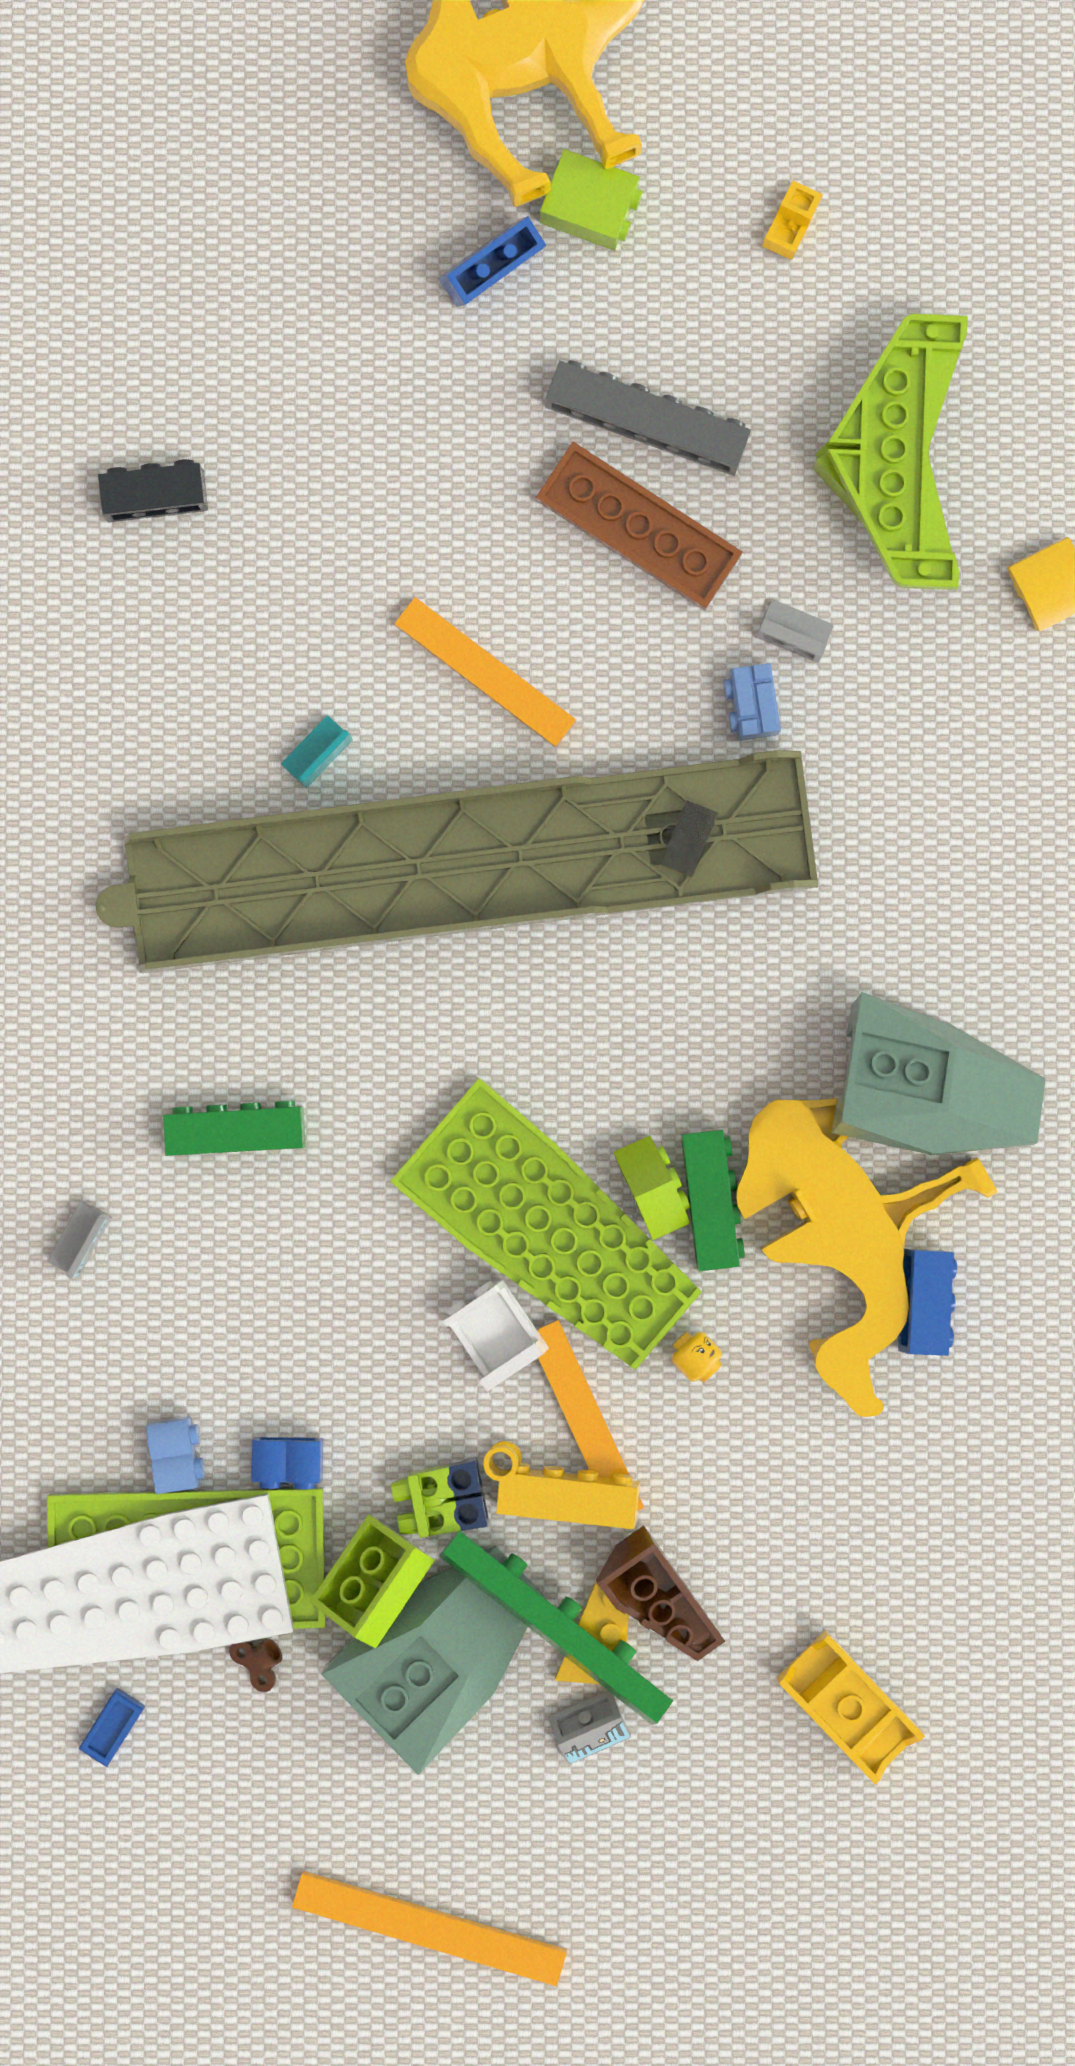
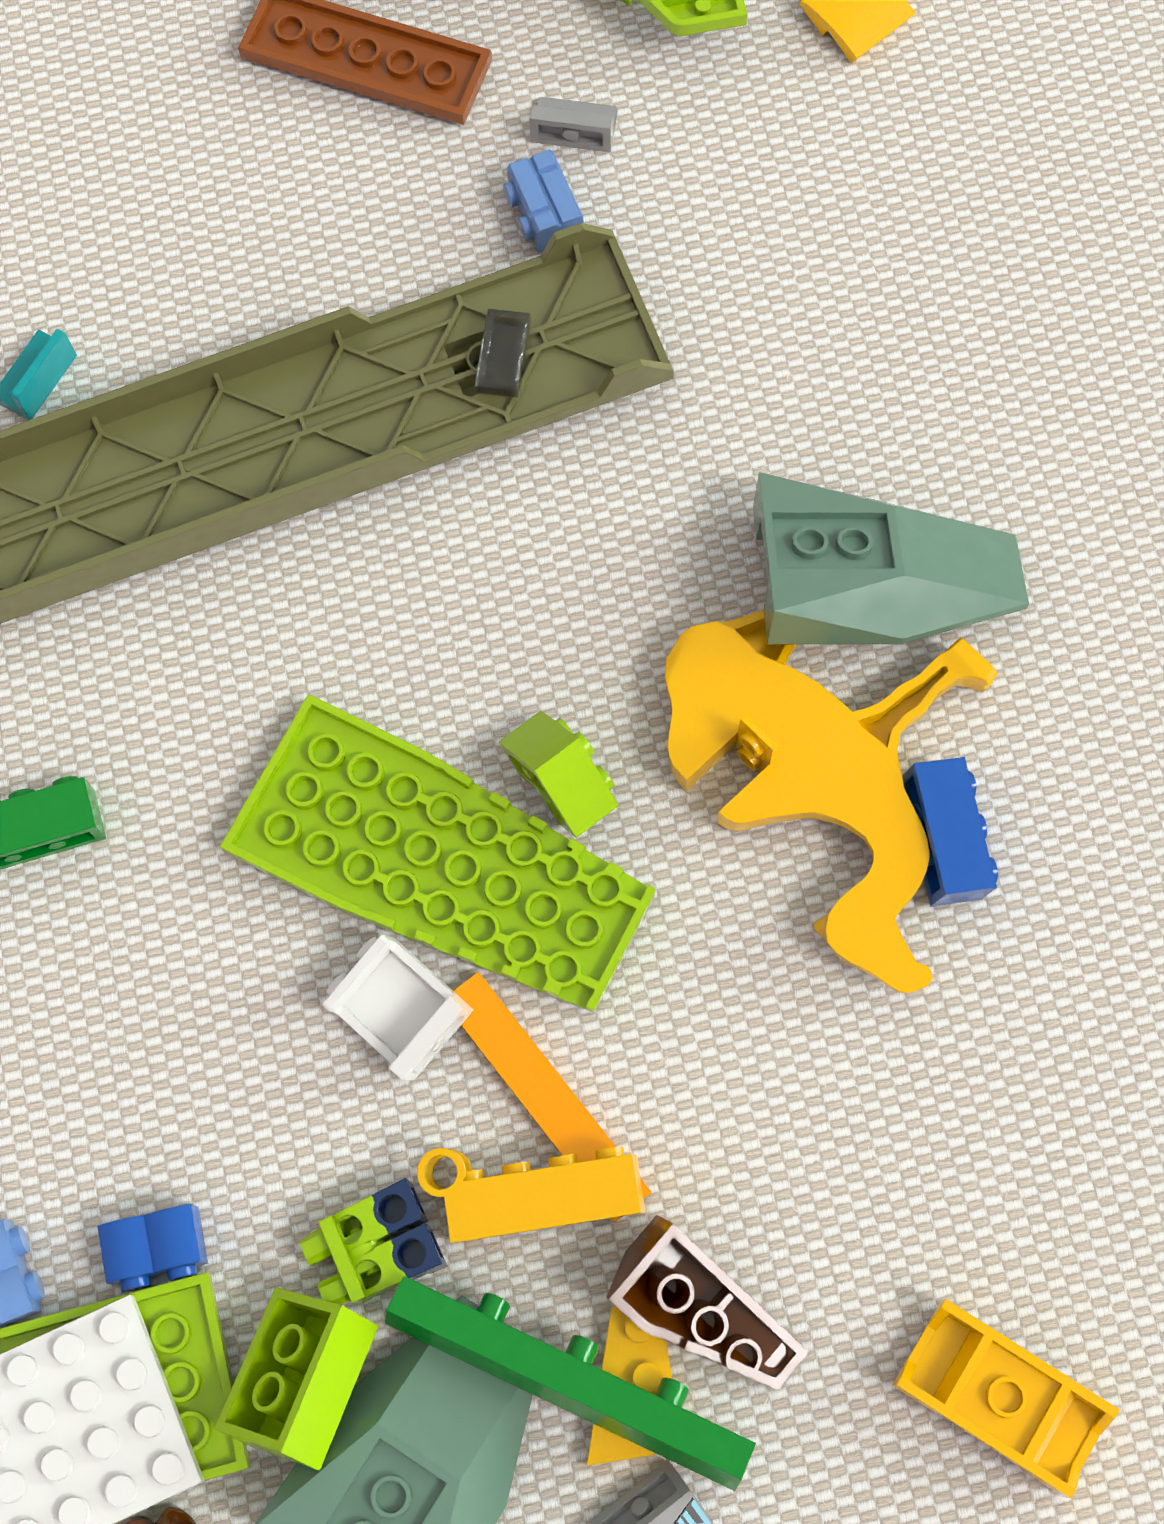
camera: 10 degrees left, 15 degrees down
(485, 672) = (221, 245): light orange tile -> none
(696, 1356) = (670, 971): yellow head -> none
(710, 1200) = (642, 782): green brick -> none

